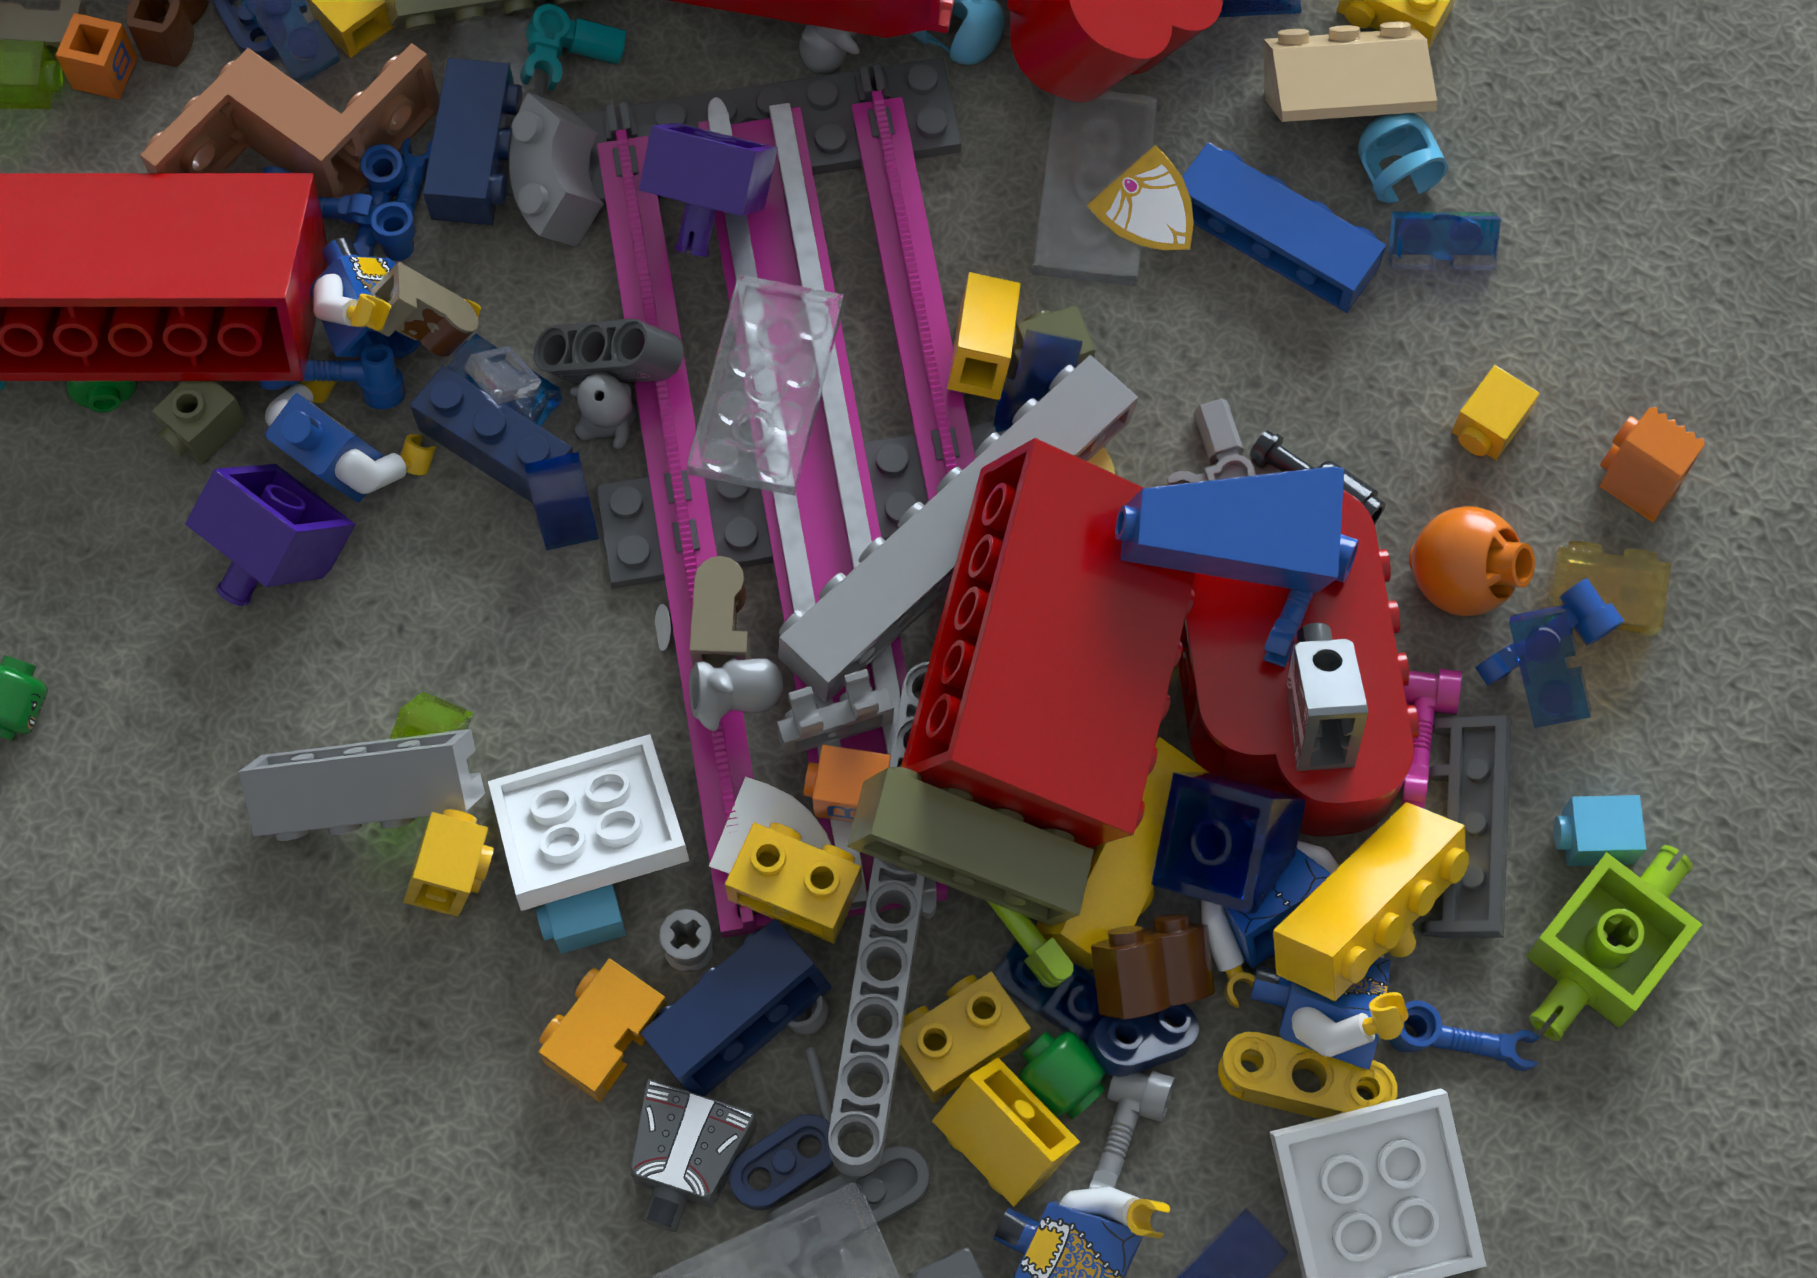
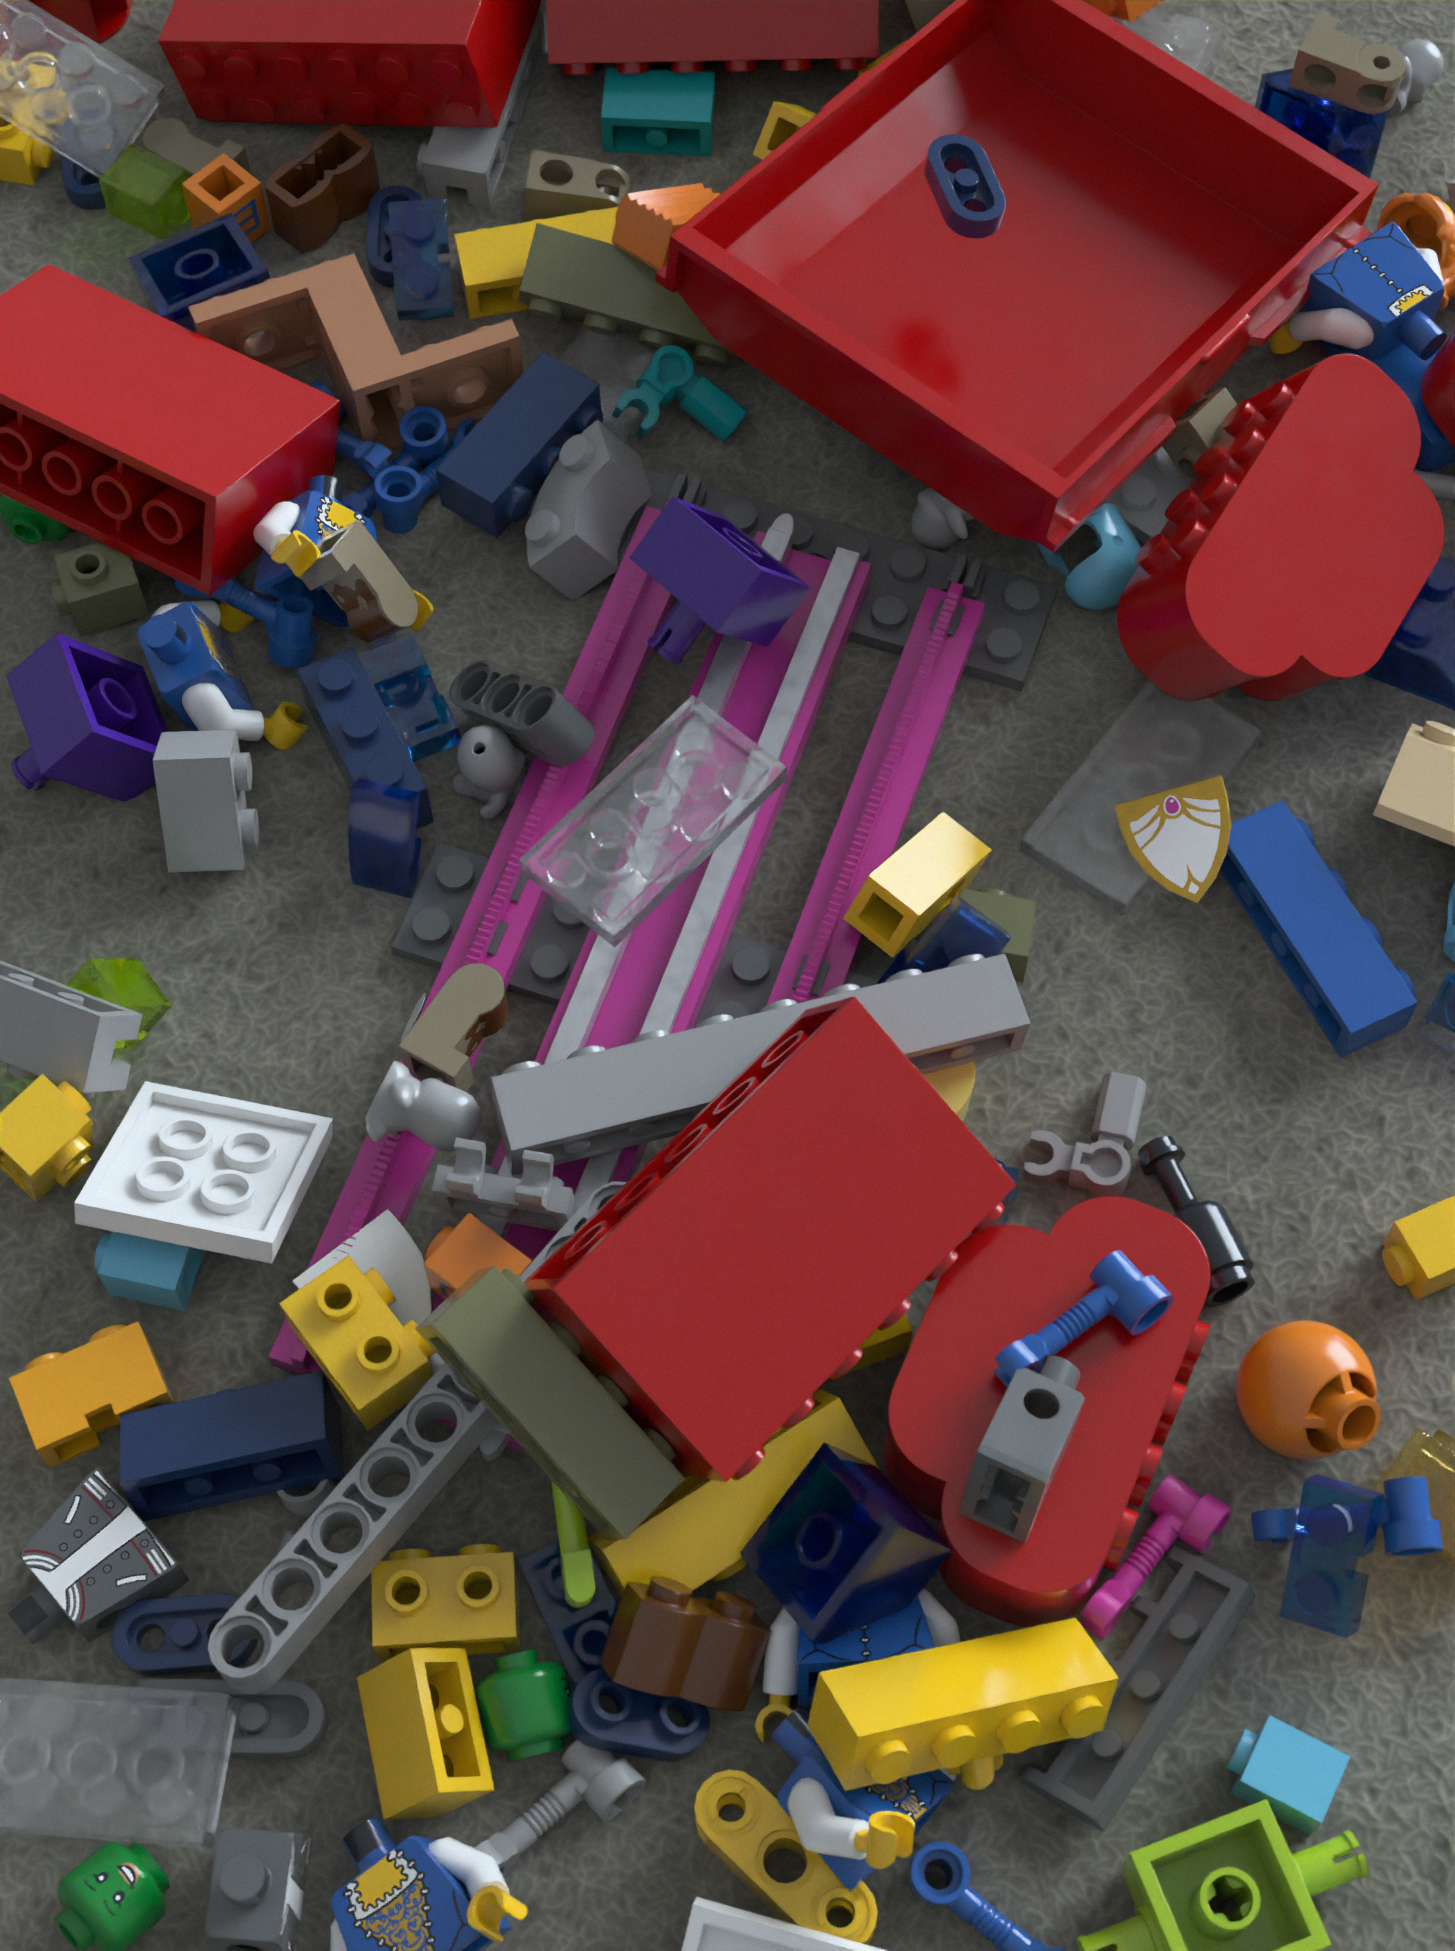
camera: 30 degrees right, 5 degrees down
(115, 121) = (197, 267): none -> clear blue slope
(402, 543) = (204, 801): none -> light grey brick
(502, 374) = (405, 684): clear tile -> none
(686, 923) = (213, 1341): light grey bush -> none
(1245, 528) = (1037, 1212): blue slope -> none

